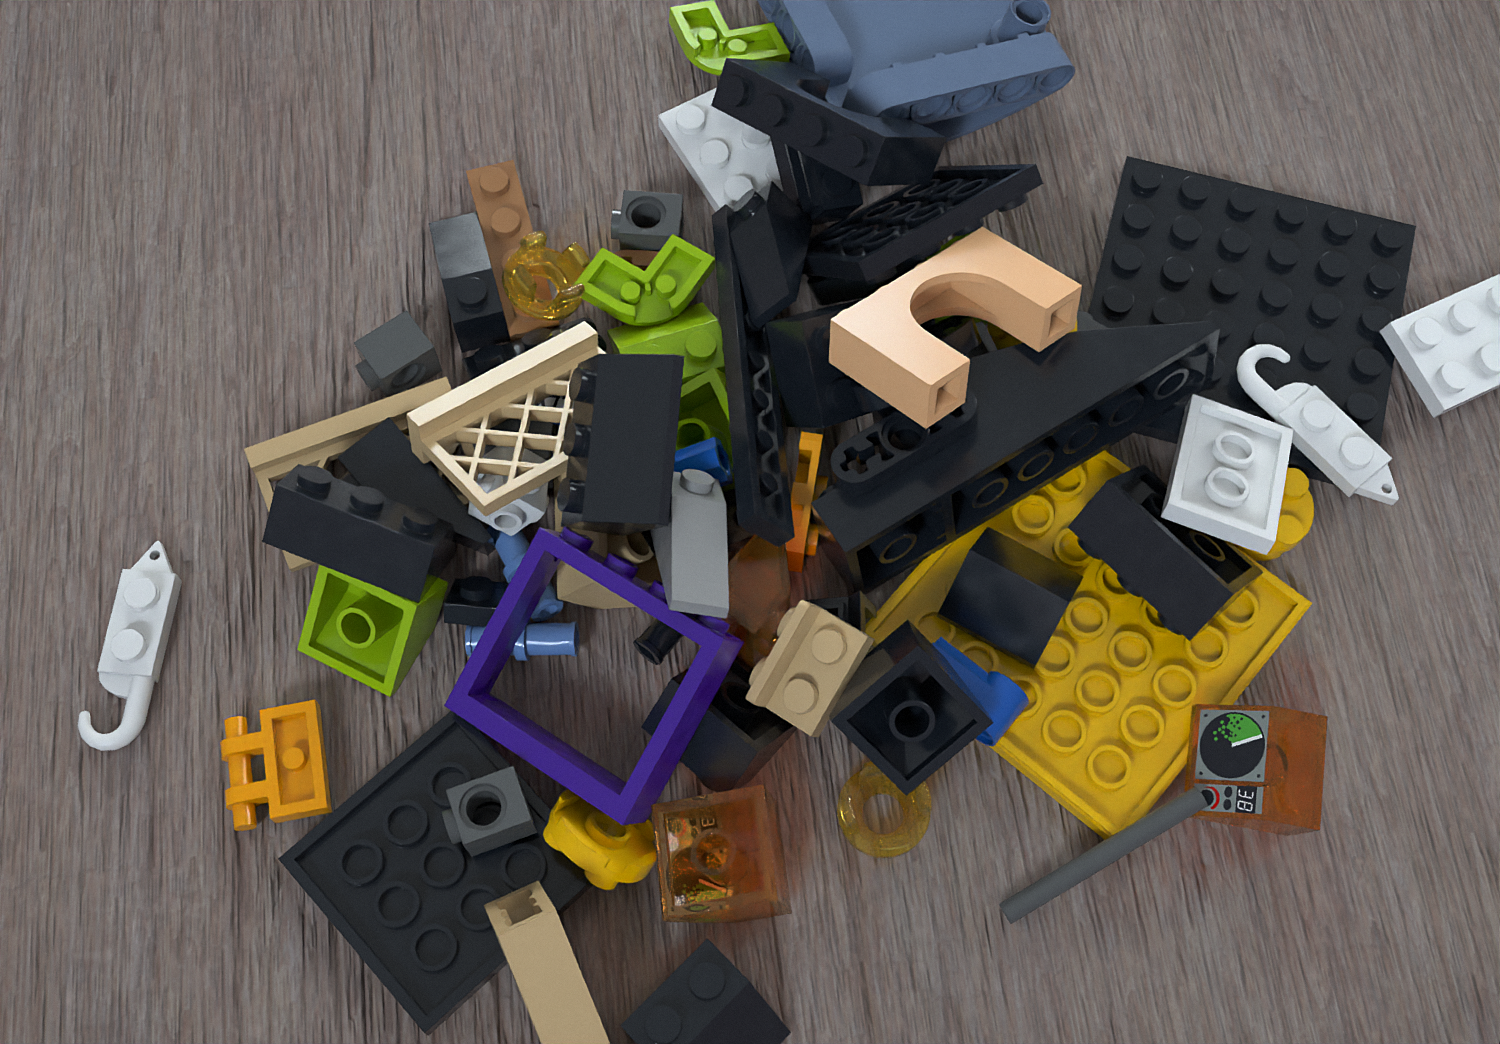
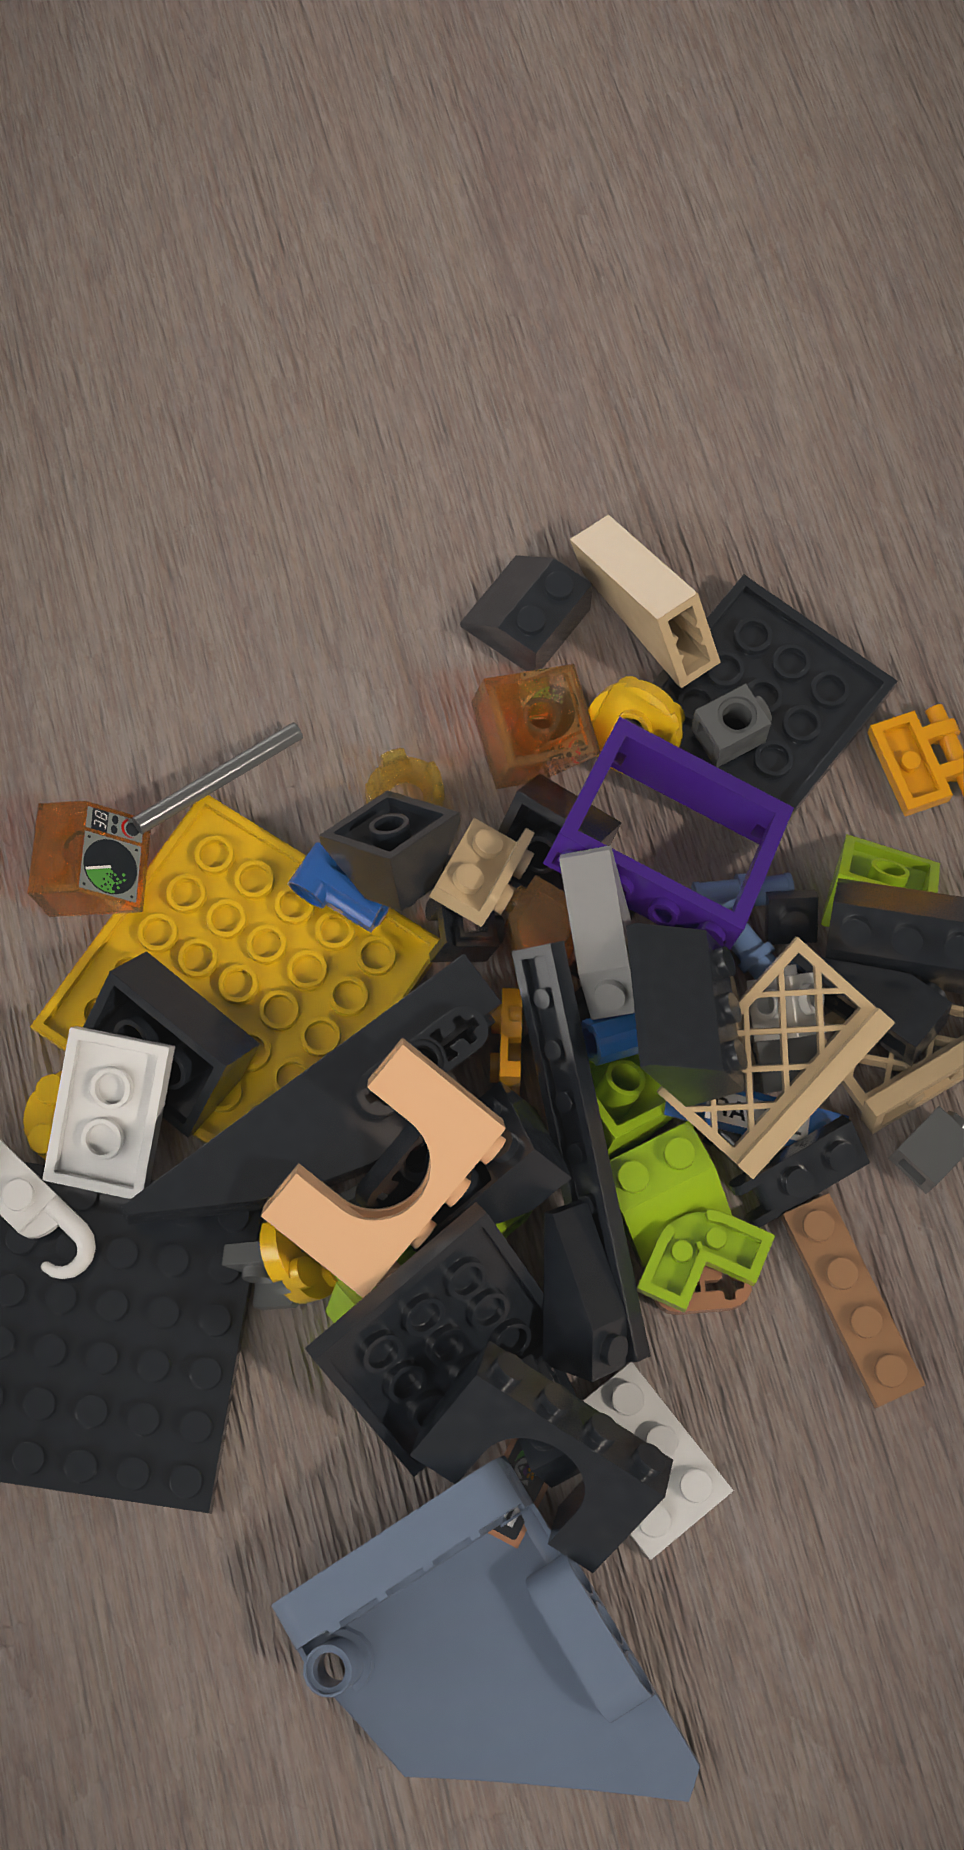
camera: 175 degrees right, 5 degrees up
(469, 282) = (891, 1253): black slope -> none
(560, 268) = (782, 1258): clear yellow piece -> none
(647, 208) = (691, 1346): dark grey brick -> none
(709, 41) = (681, 1589): lime plate -> none
(1009, 596) = (306, 988): black slope -> none

